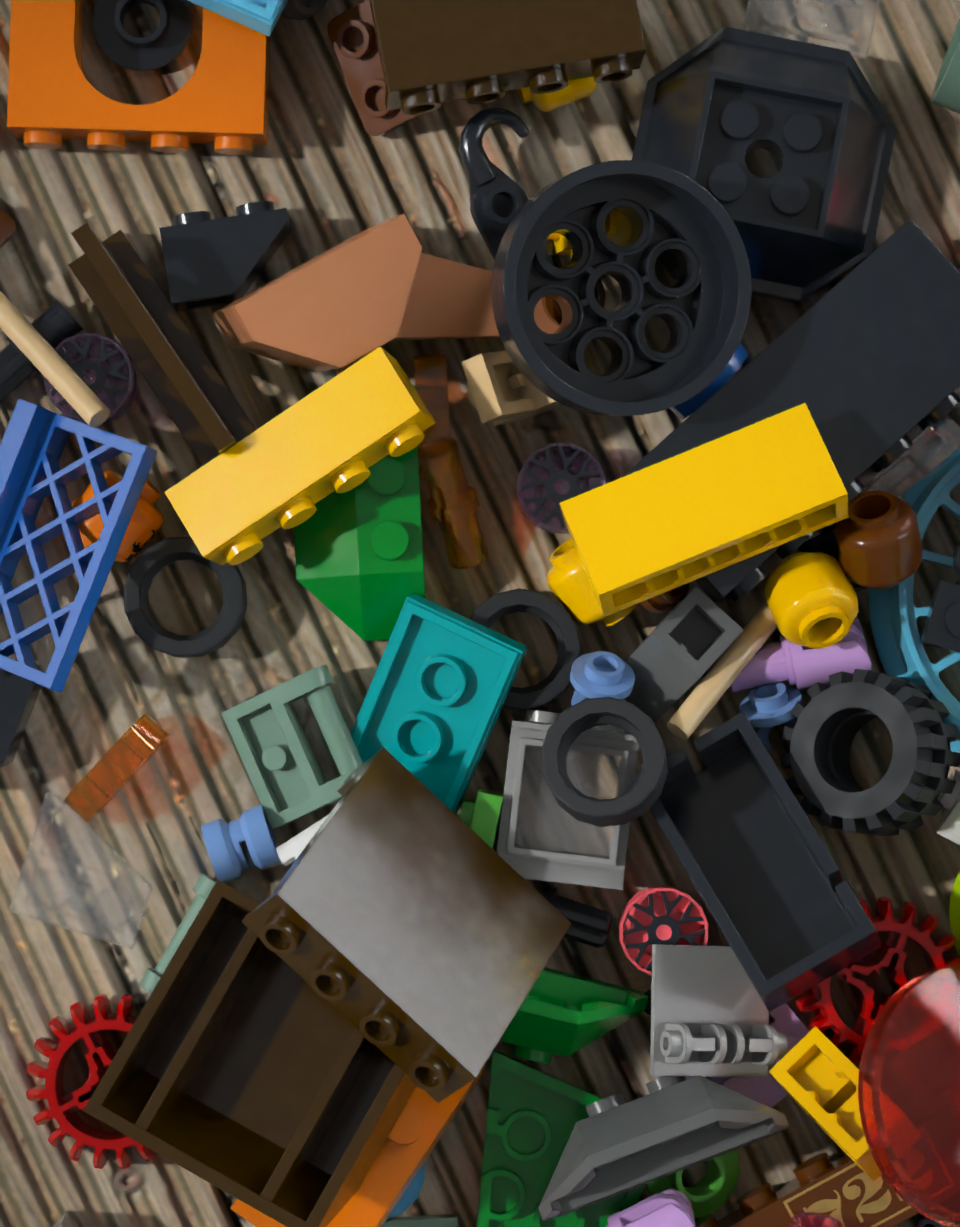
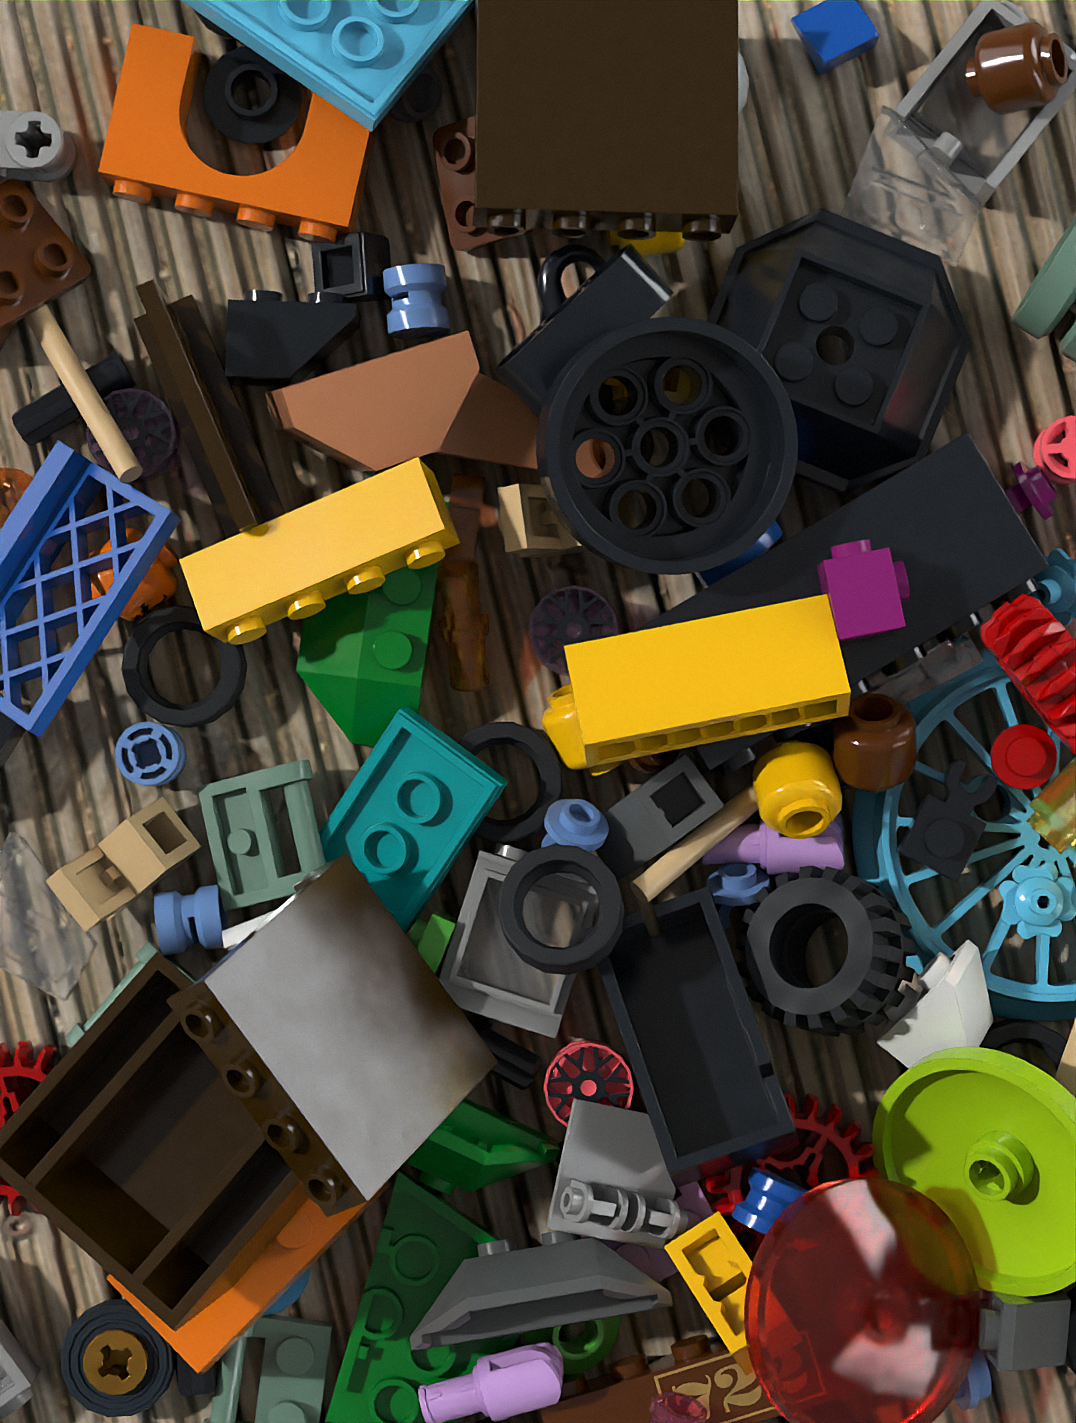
camera: 20 degrees right, 0 degrees up
(116, 768) = (84, 821): clear orange beam -> none
(165, 802) = (124, 865): none -> tan brick
(179, 692) = (161, 757): none -> medium blue wheel
(274, 172) = (352, 266): none -> black slope
(343, 193) = (416, 301): none -> medium blue wheel
(539, 152) = (614, 296): none -> black beam
(840, 392) = (864, 590): none -> magenta brick
(859, 1006) = (765, 1200): none -> blue wheel

